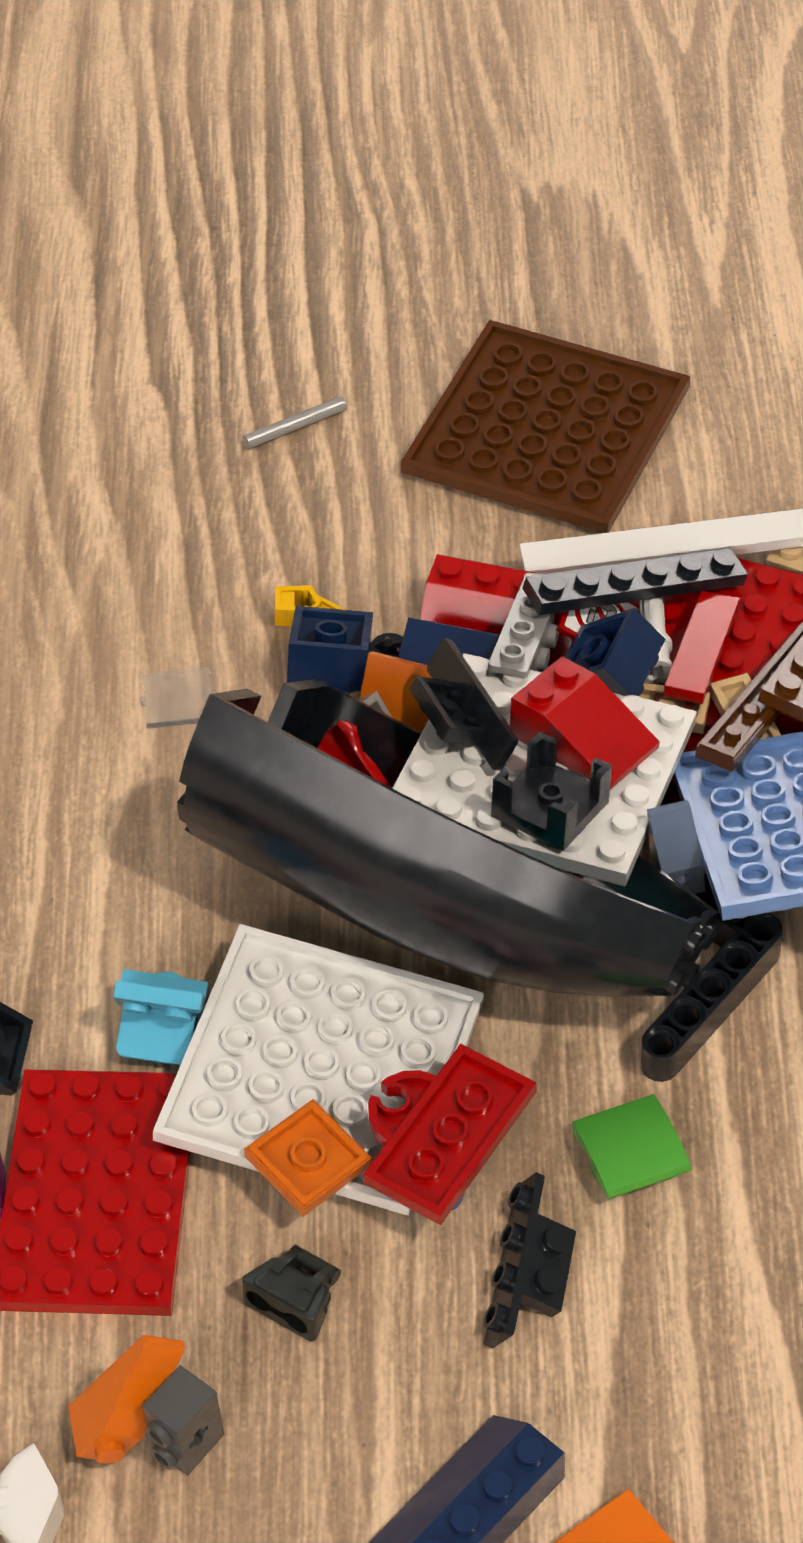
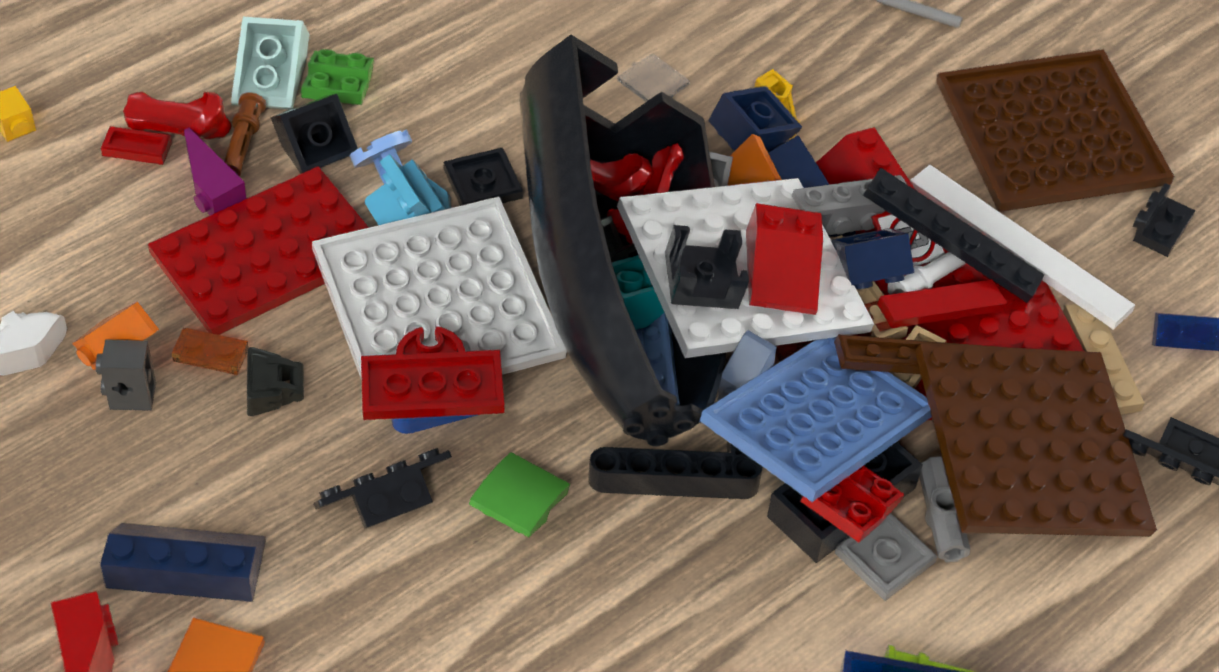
camera: 45 degrees right, 0 degrees up
(77, 996) = (380, 149): none -> light blue tile
(179, 930) = (483, 177): none -> black tile
(201, 1321) = (210, 351): none -> clear orange plate
(308, 1157) = (358, 325): orange tile -> none
(462, 707) = (731, 187): black bracket -> none
(730, 423) = (1162, 223): none -> black bracket

